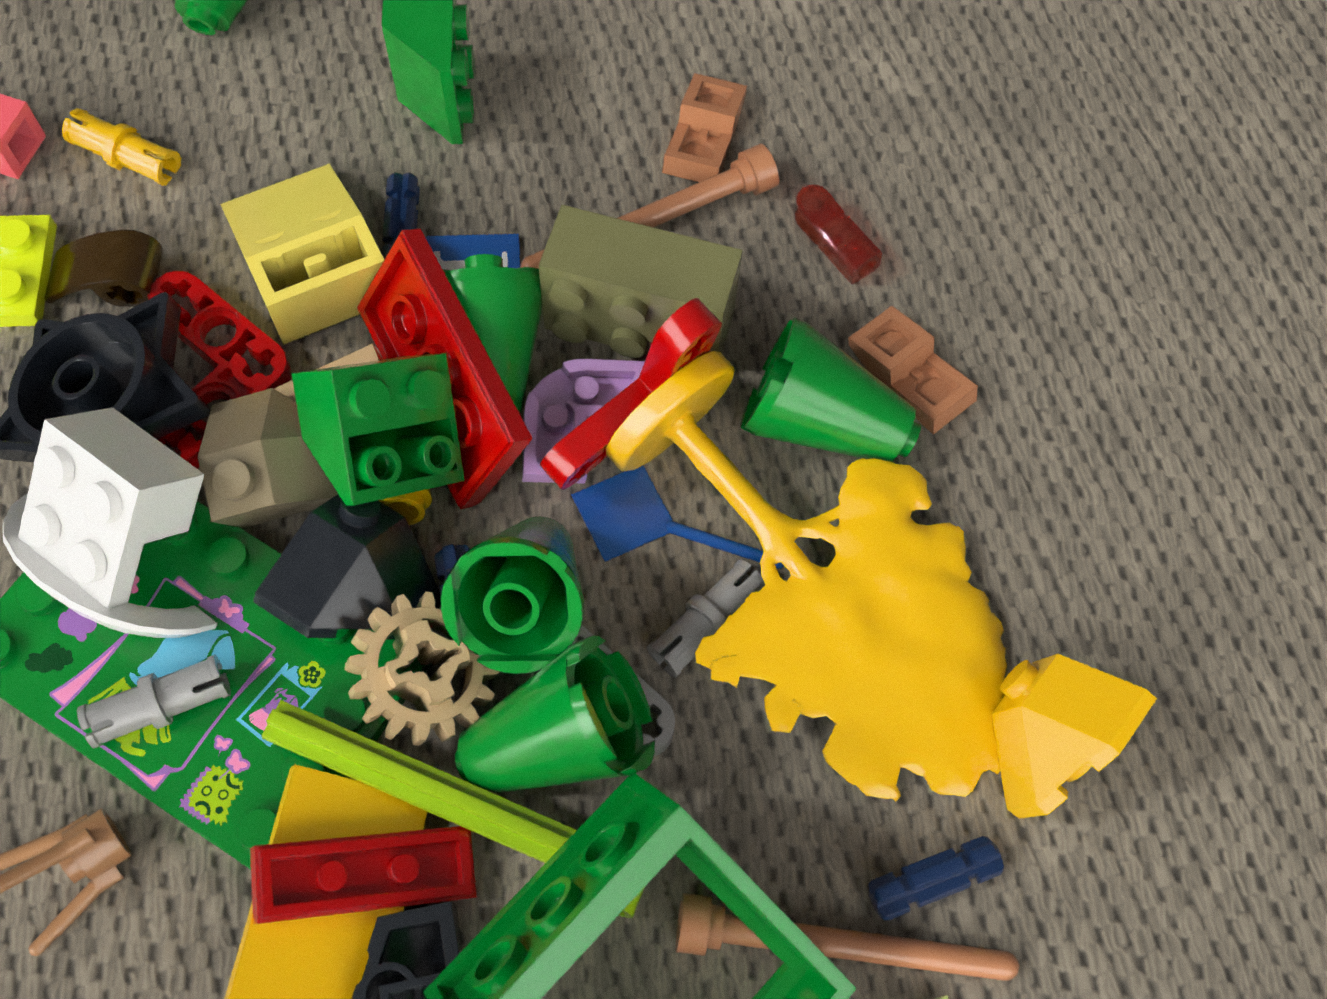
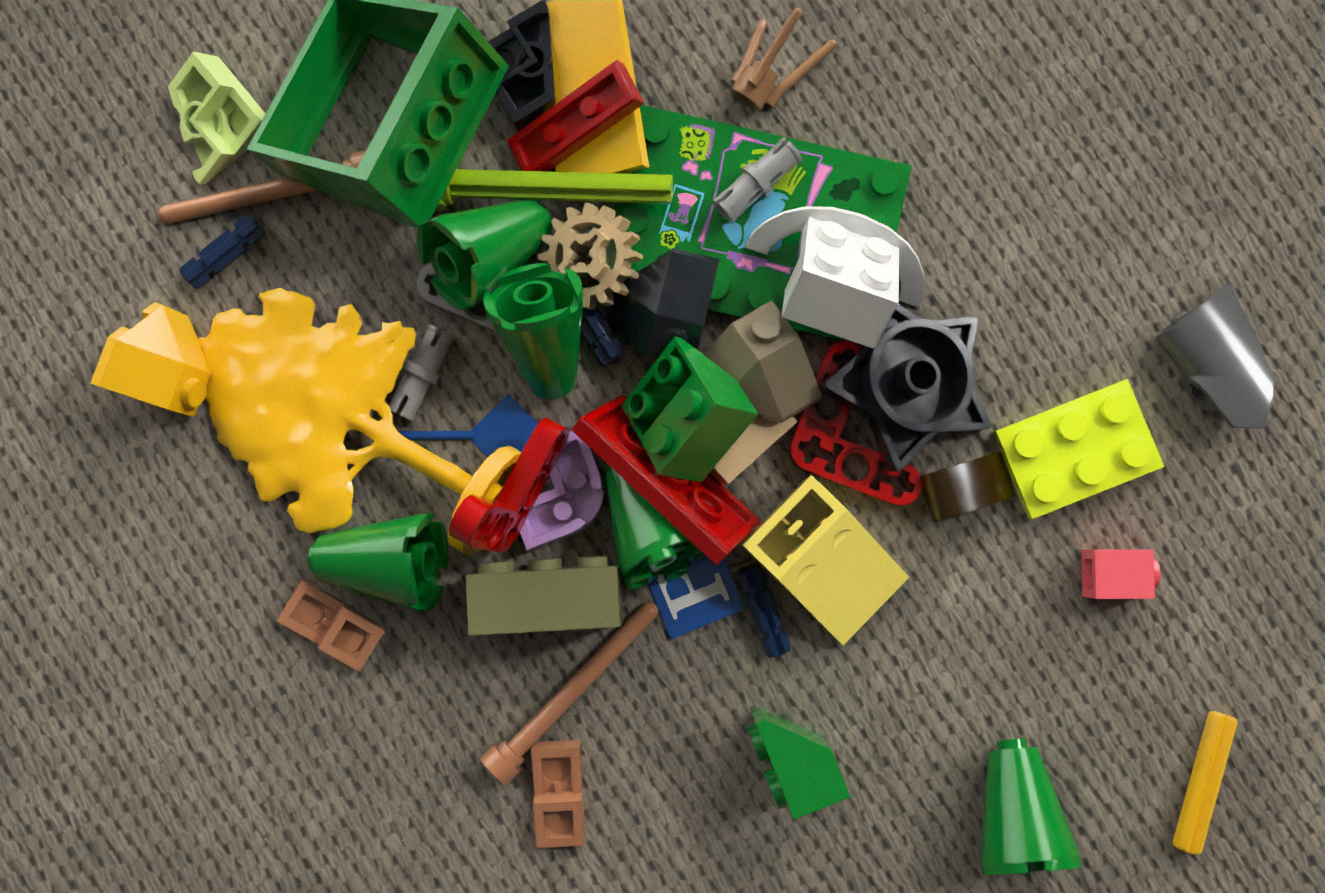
camera: 170 degrees right, 20 degrees up
(121, 146) = (1014, 602): yellow pin -> none
(836, 233) = (421, 724): clear red bar -> none

